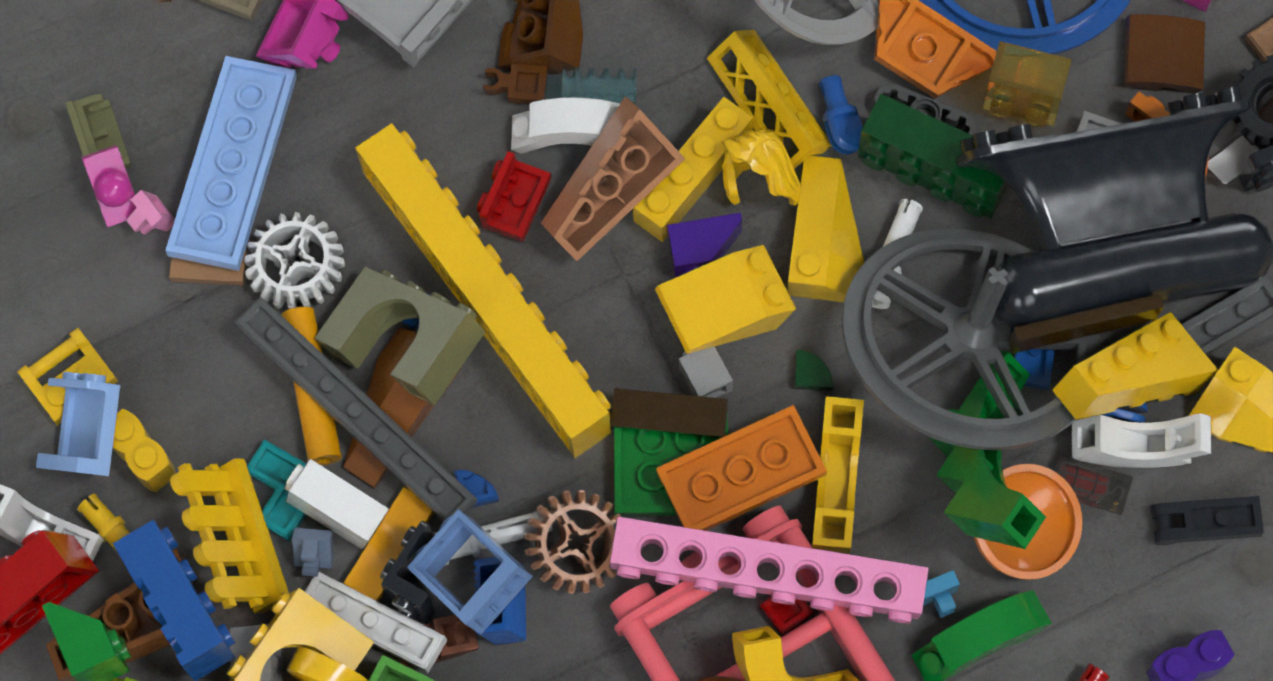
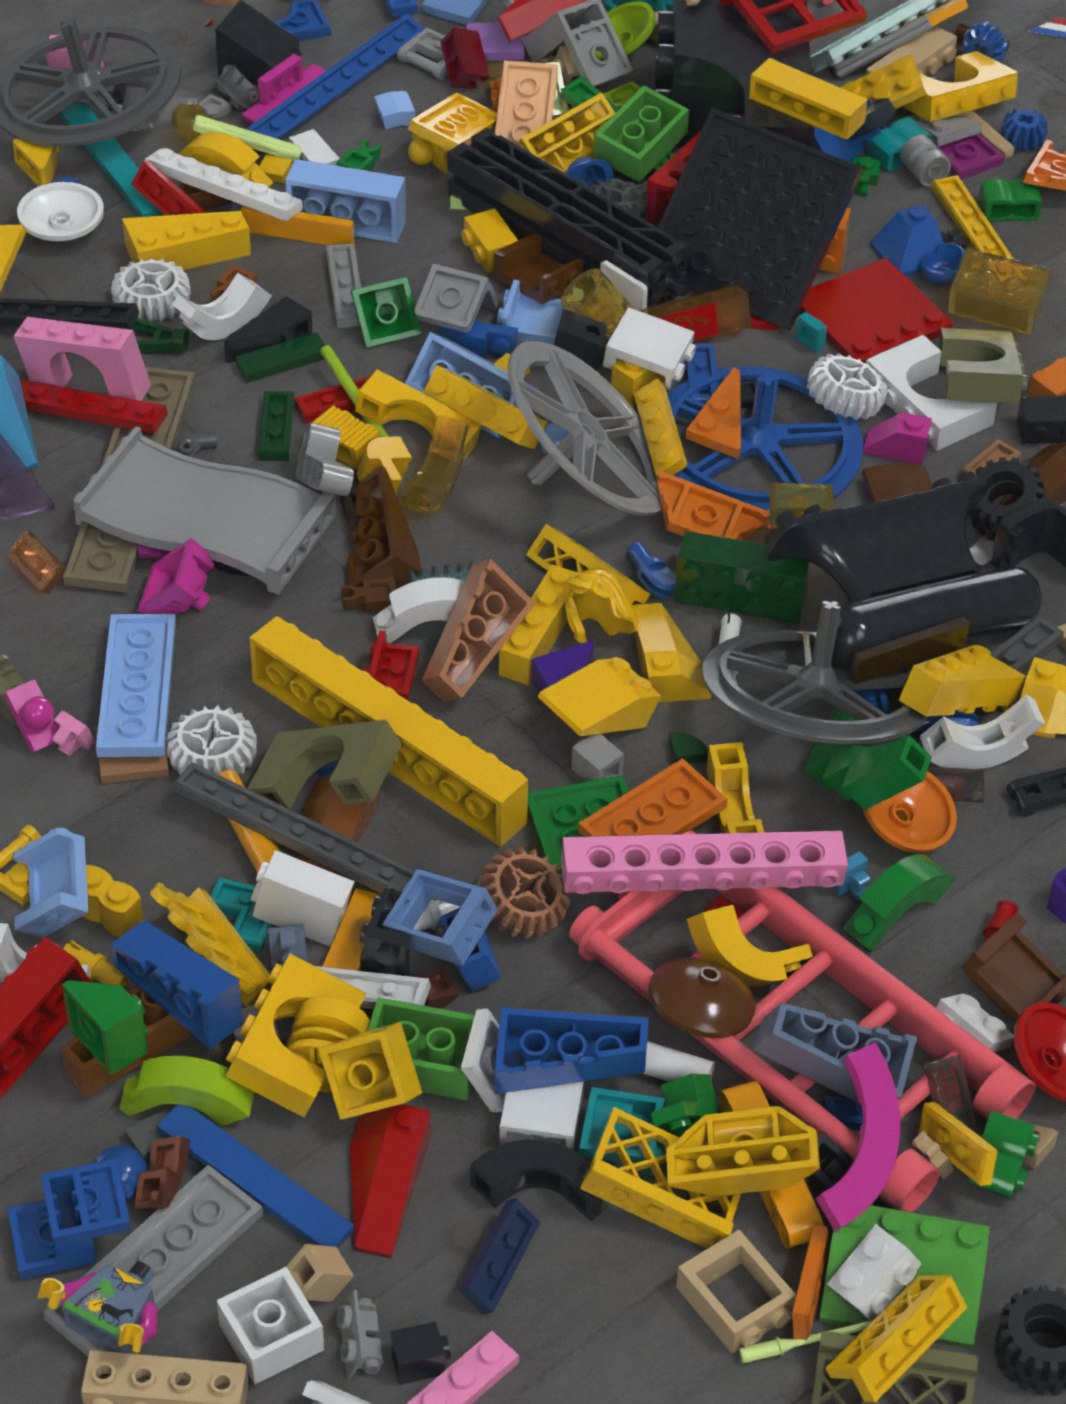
camera: 20 degrees left, 25 degrees down
(669, 412) = (577, 784): dark brown tile -> none

